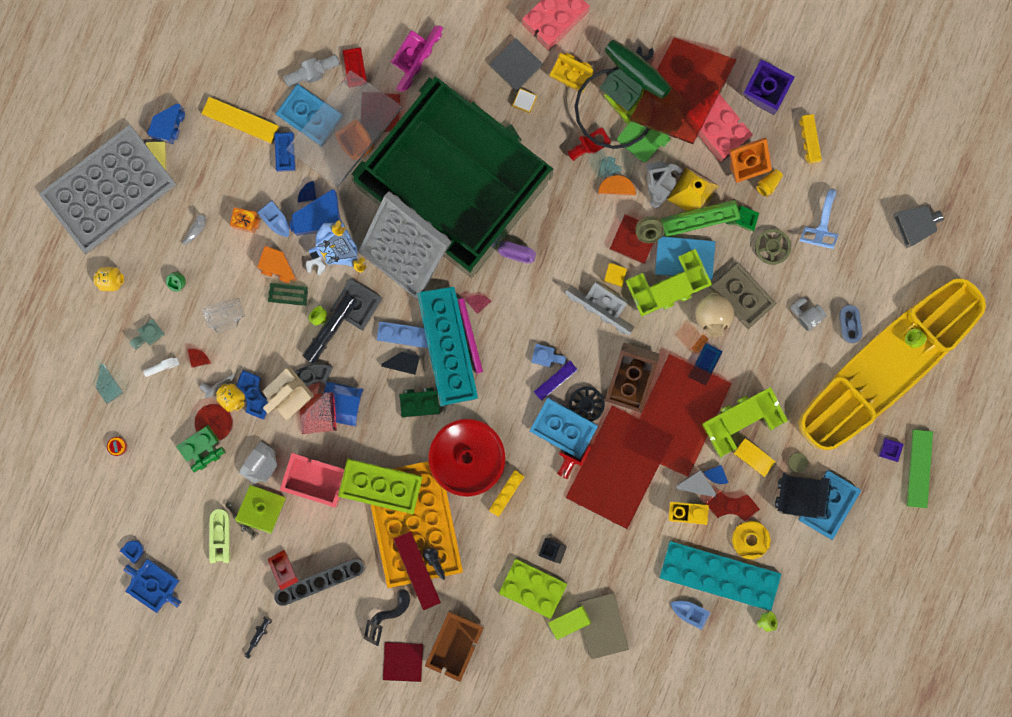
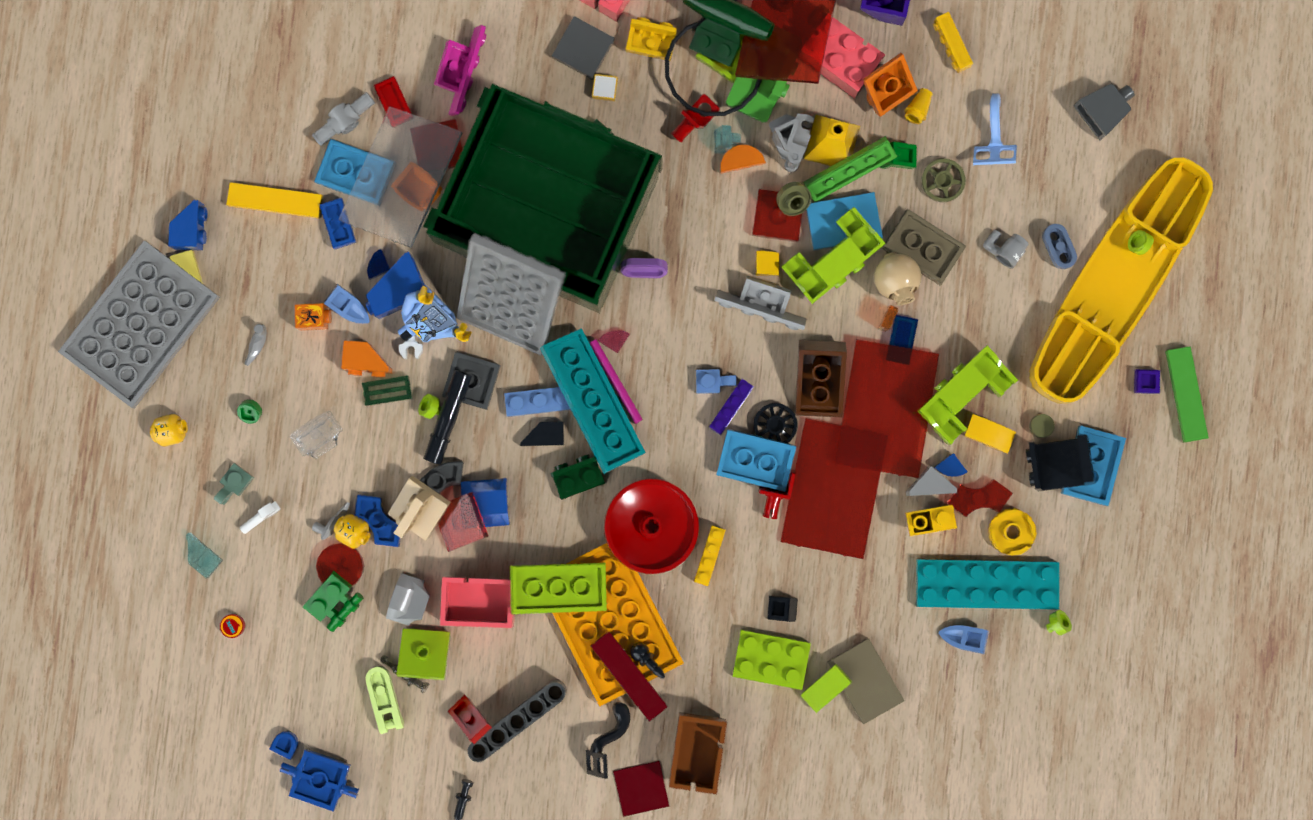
camera: 15 degrees left, 0 degrees up
(198, 358) = (300, 495): clear red tile -> none

